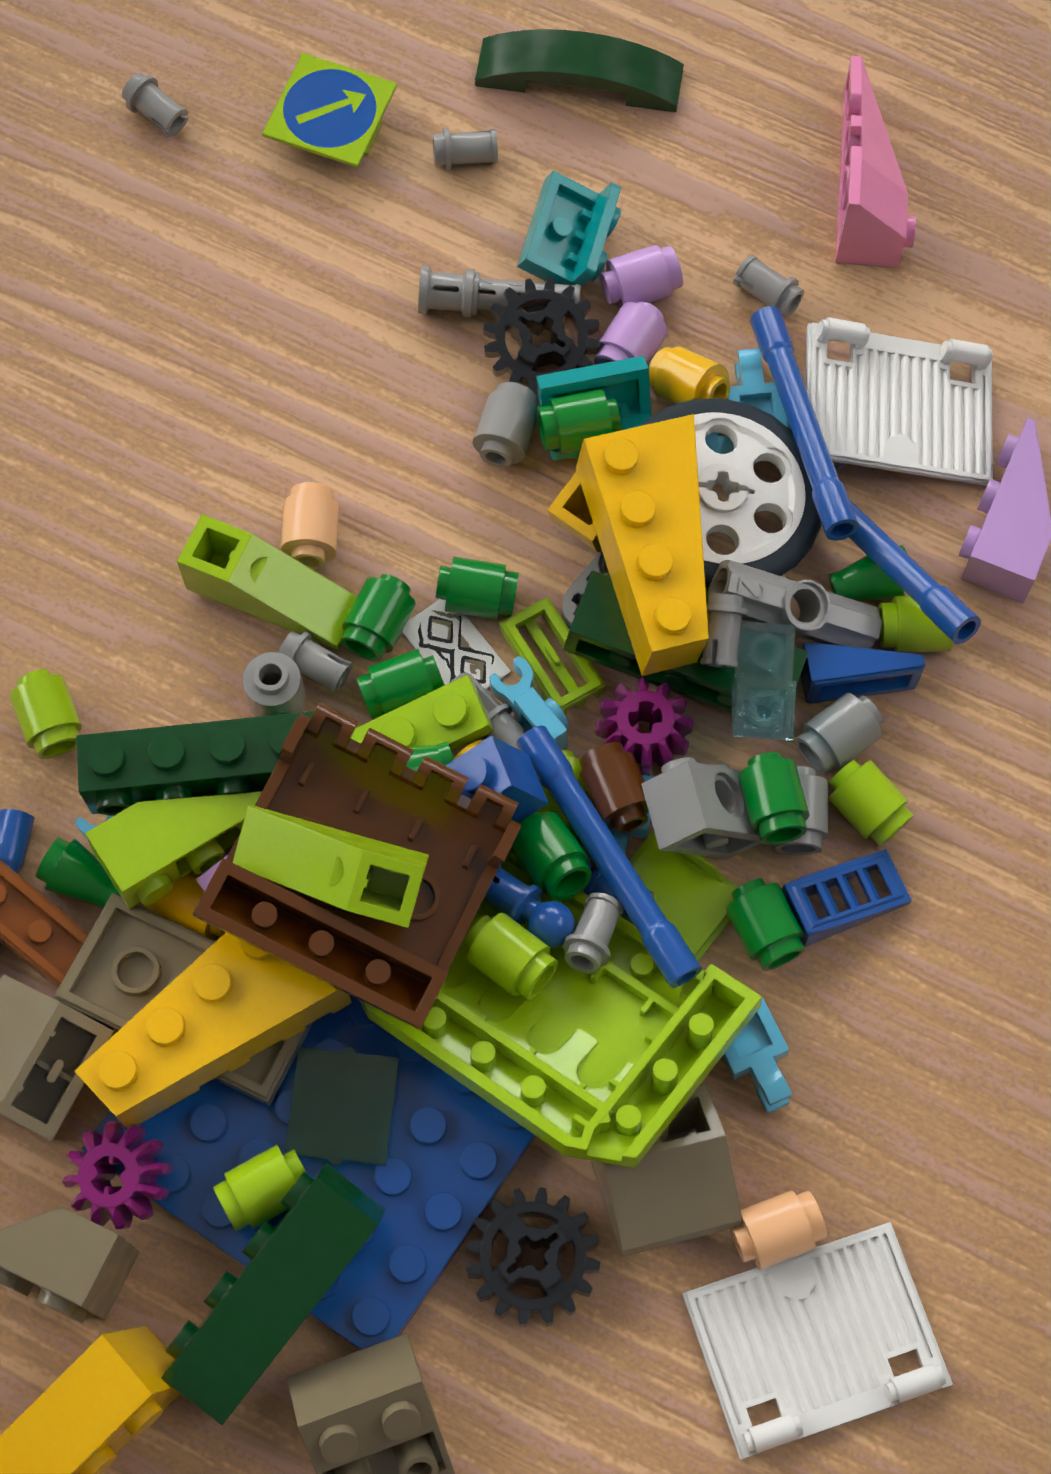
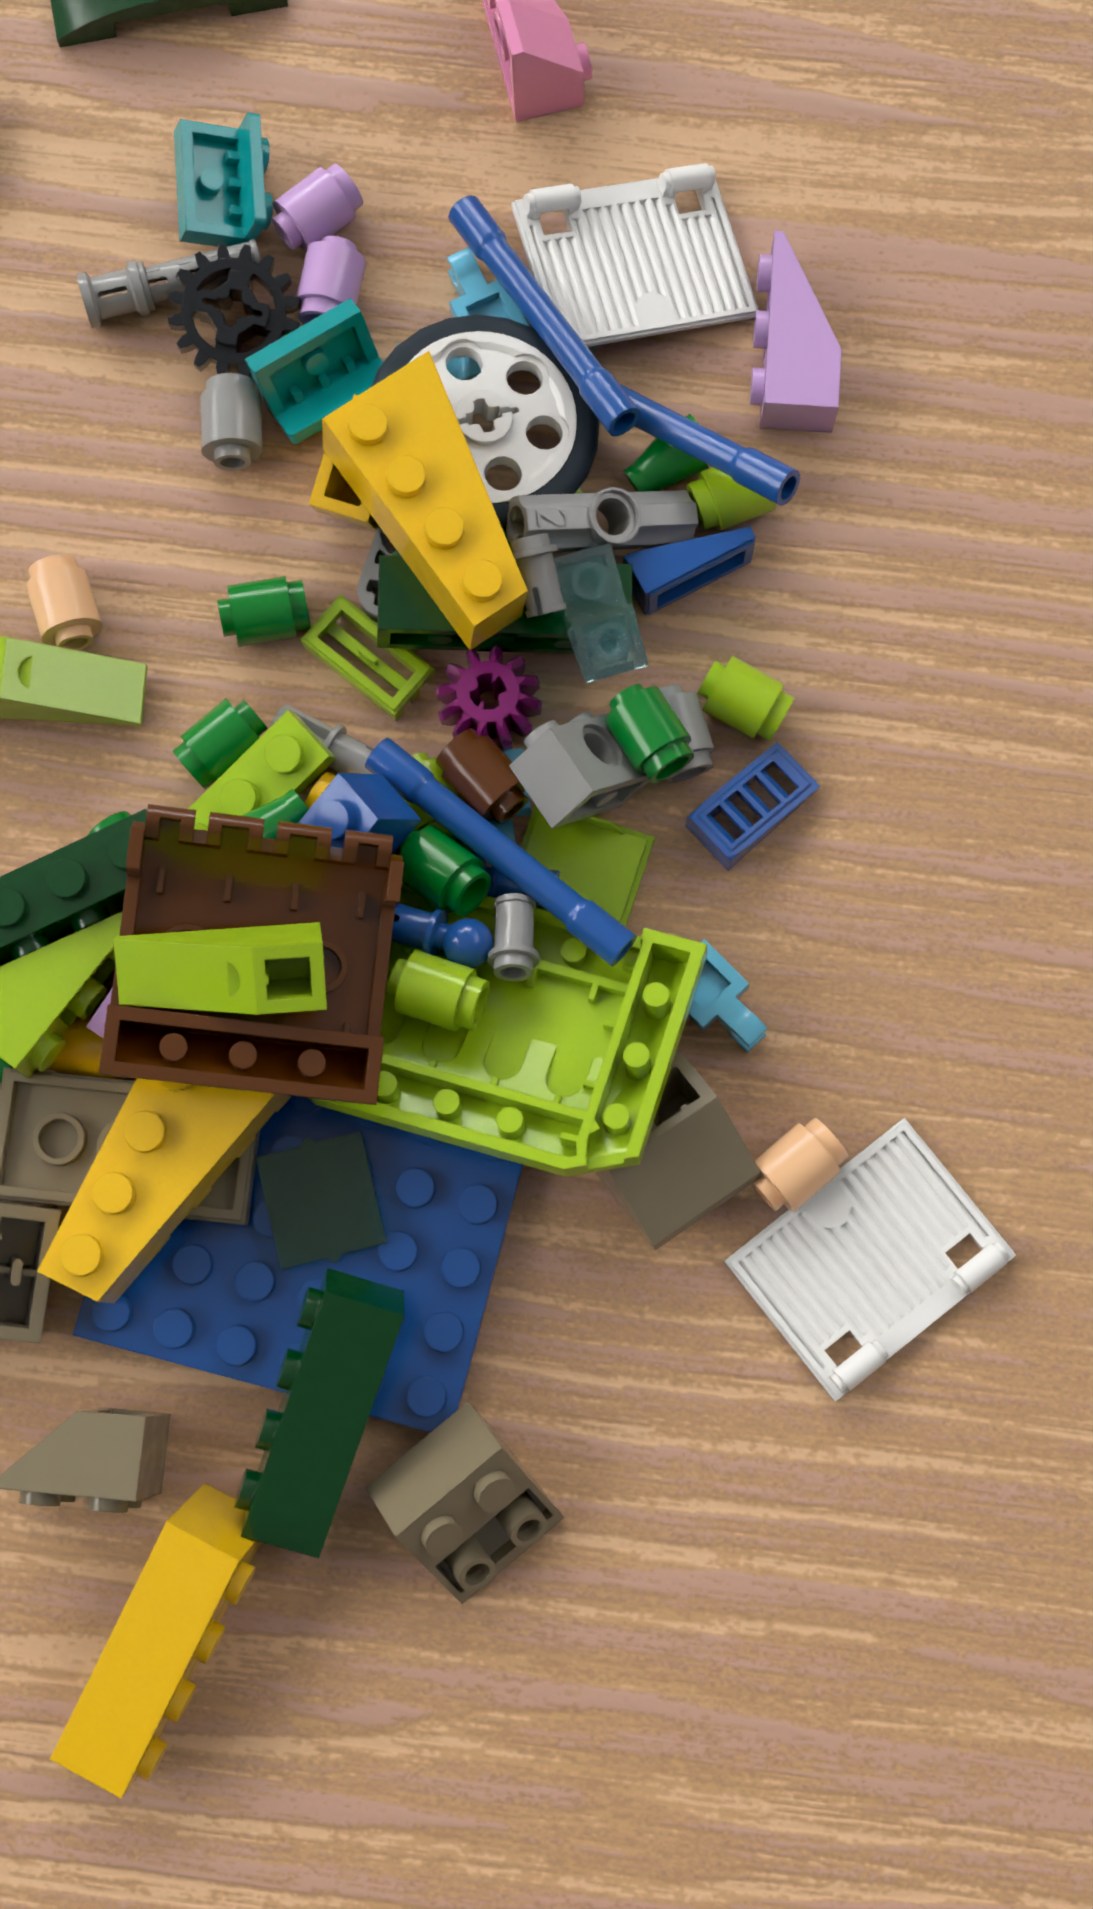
camera: 15 degrees left, 10 degrees up
(97, 1170) = (97, 1348): magenta gear -> none
(257, 1187) = (268, 1313): lime brick -> none
(273, 685) = (81, 775): light grey brick -> none
(316, 661) = (121, 747): light grey pin -> none
(377, 617) = (171, 677): green brick -> none
(454, 644) = (261, 679): white sticker -> none
(464, 148) = (74, 123): light grey pin -> none
(516, 1234) = (540, 1263): black gear -> none
(528, 705) = (363, 720): medium azure plate -> none
(577, 417) = (306, 394): green brick -> none
(685, 376) = (404, 304): yellow brick -> none
(766, 924) = (682, 862): green brick -> none
(769, 285) = (455, 172): light grey pin -> none
(840, 733) = (691, 636): light grey brick -> none

